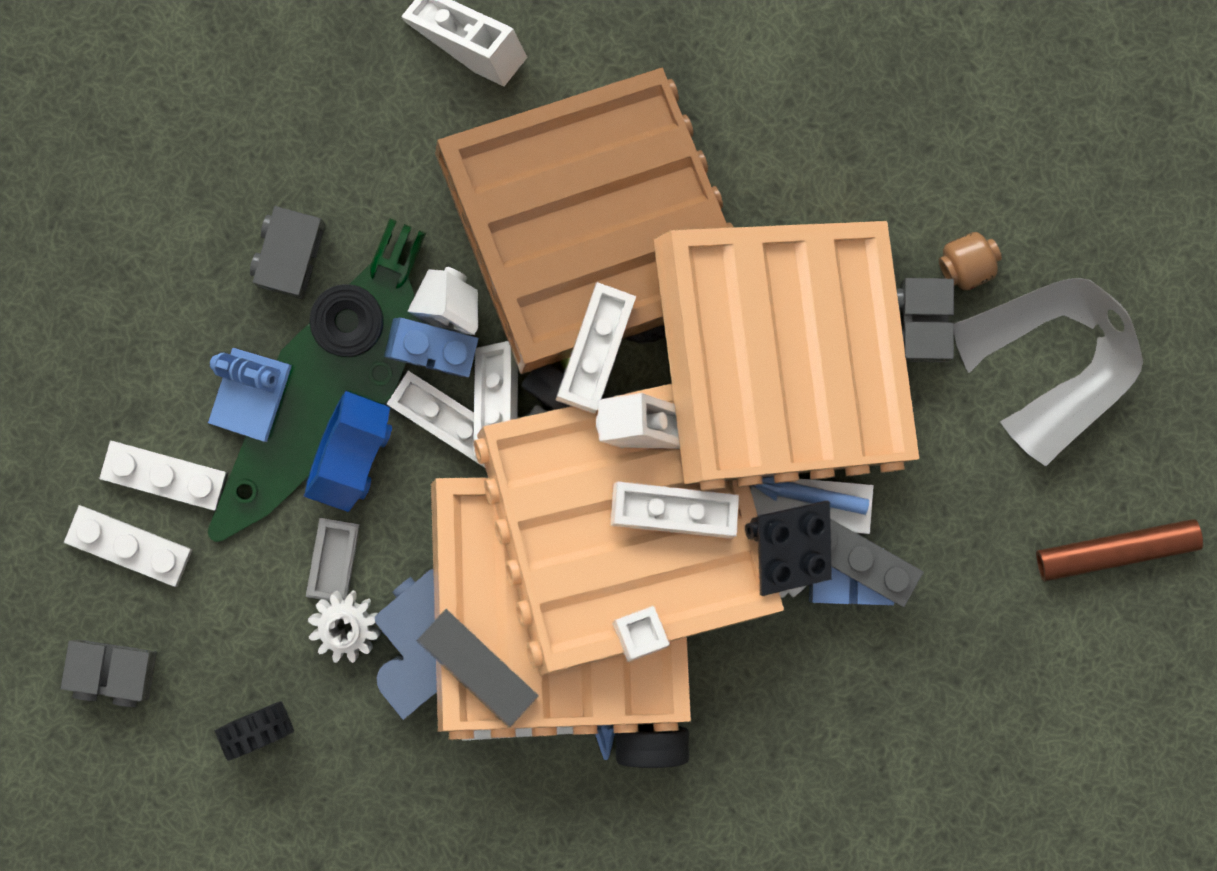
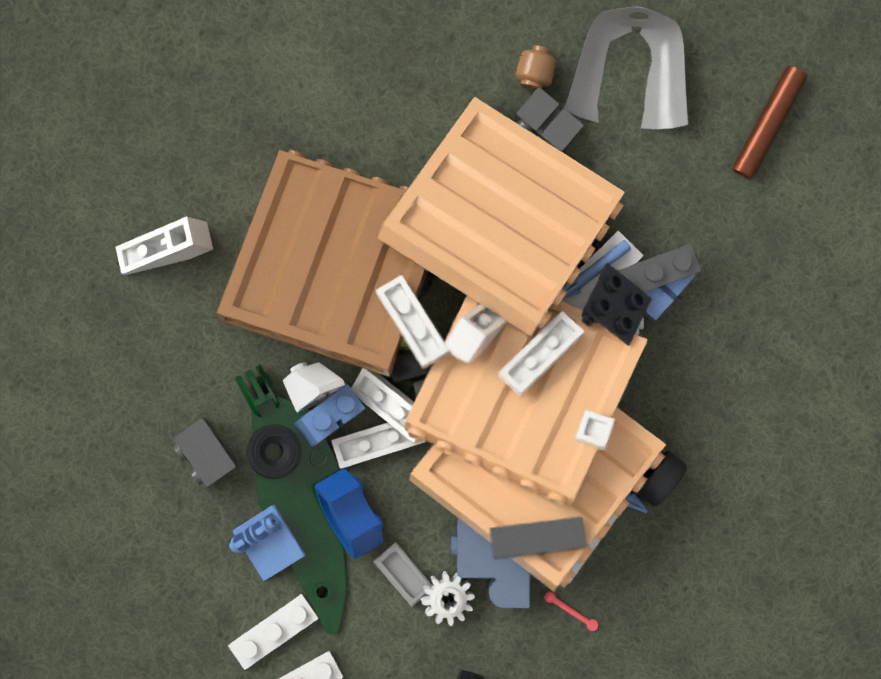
camera: 50 degrees left, 0 degrees up
(442, 798) = (591, 624): none -> coral hinge

